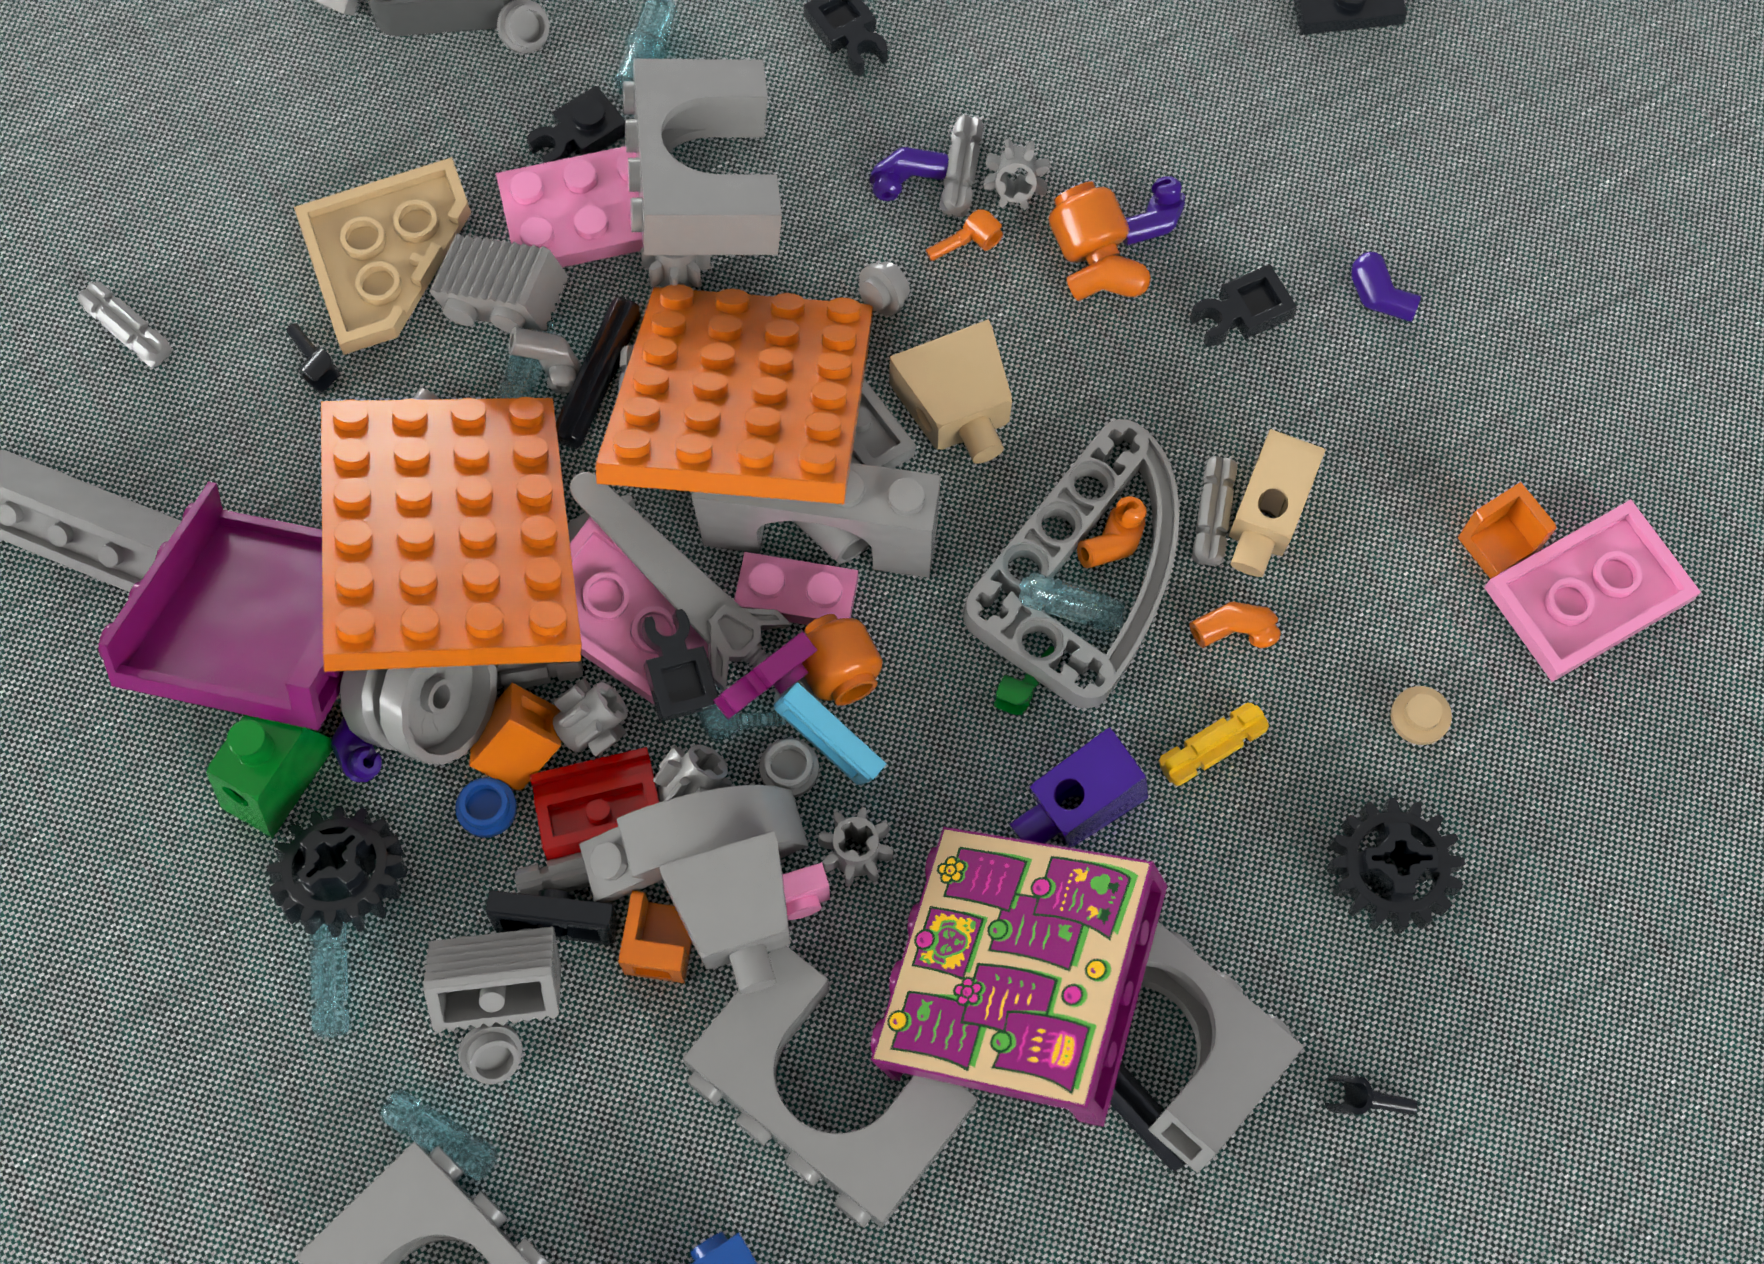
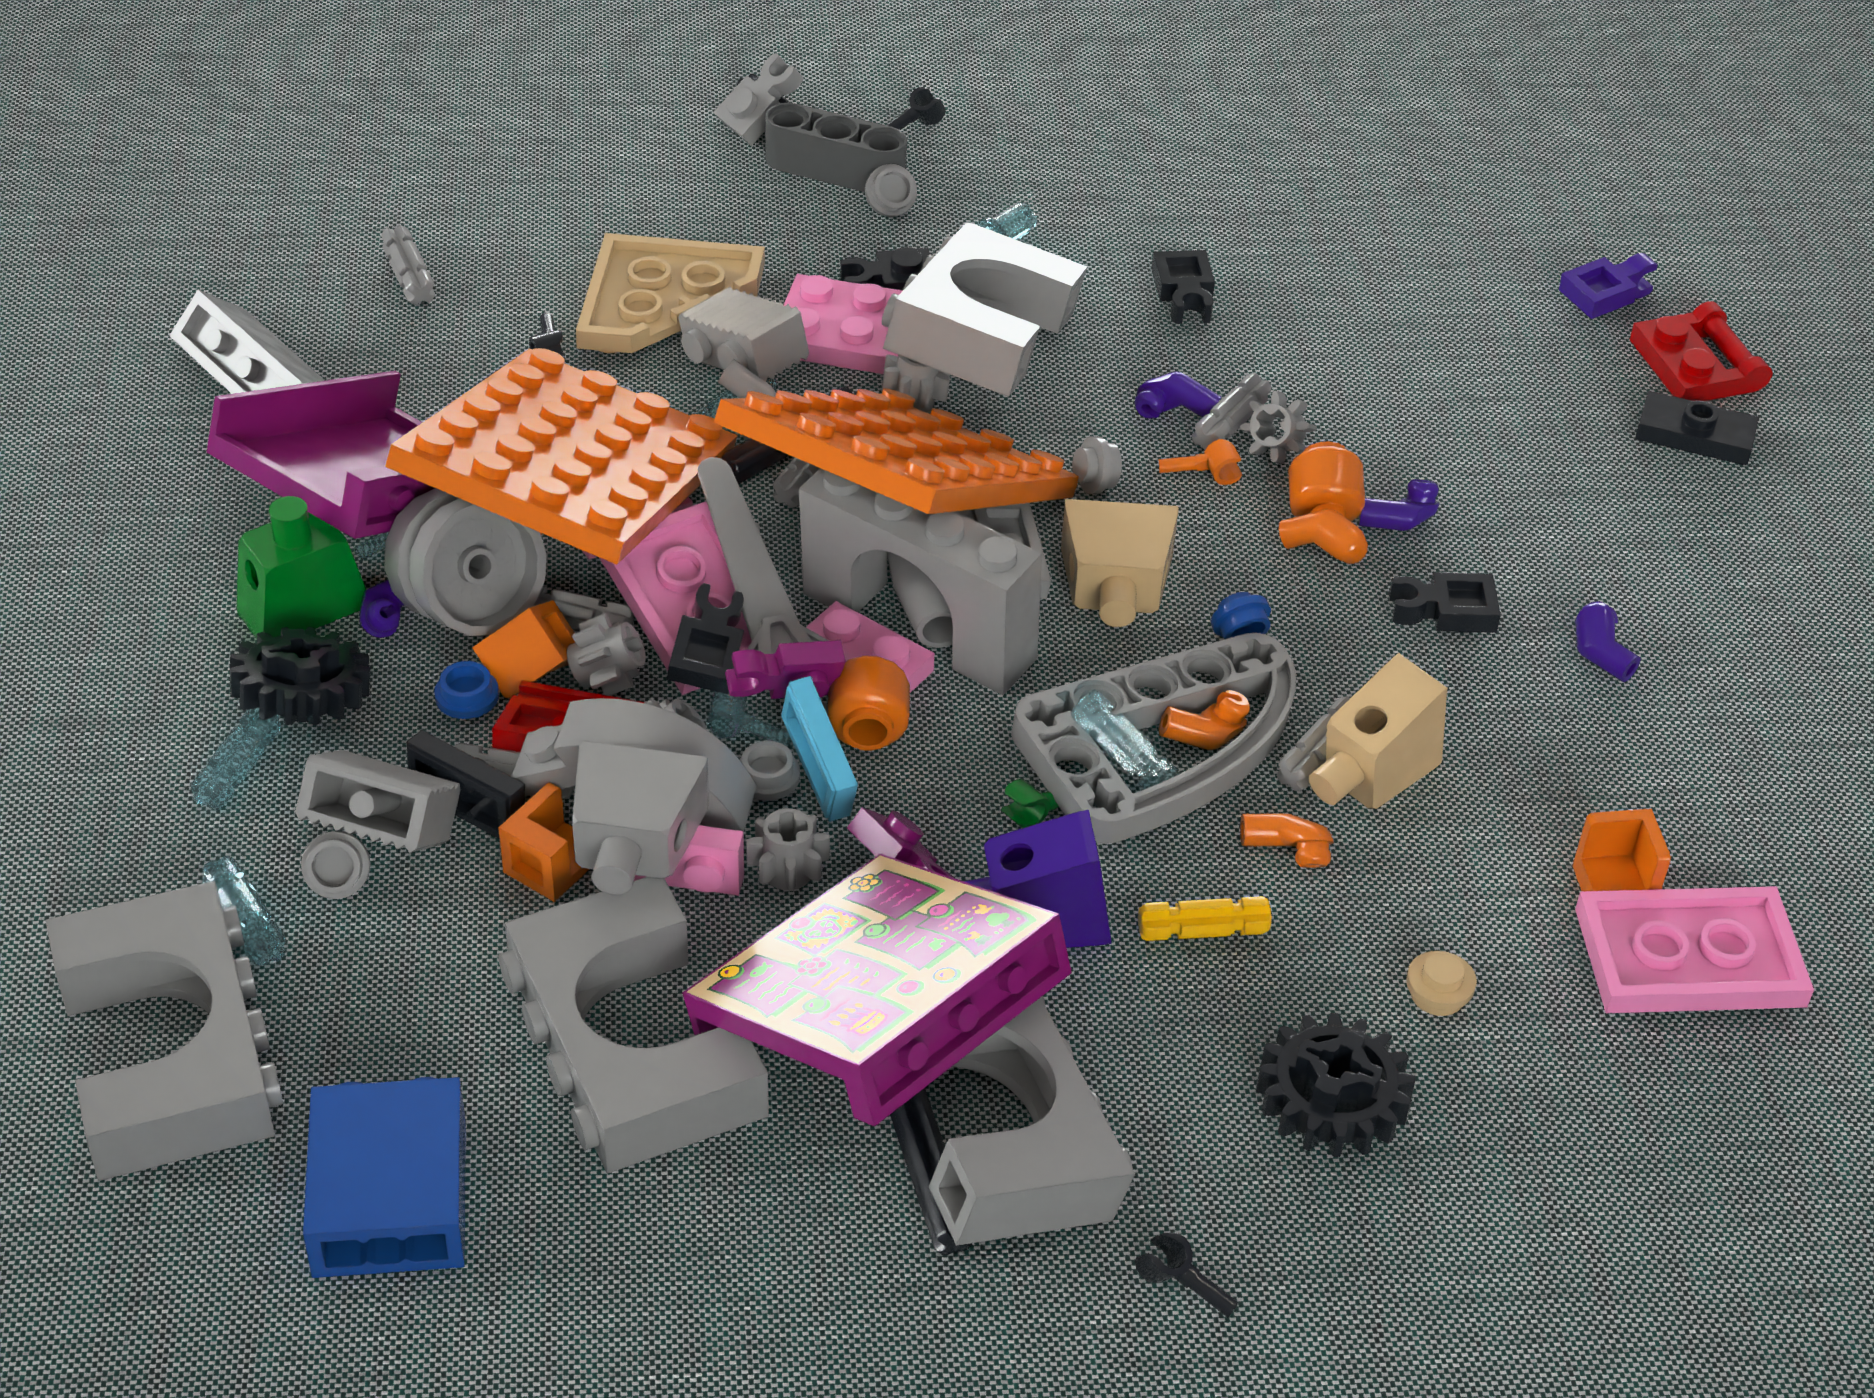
camera: 25 degrees right, 25 degrees down
(946, 802) = (893, 837): none -> magenta plate
(1089, 408) = (1241, 615): none -> blue plate

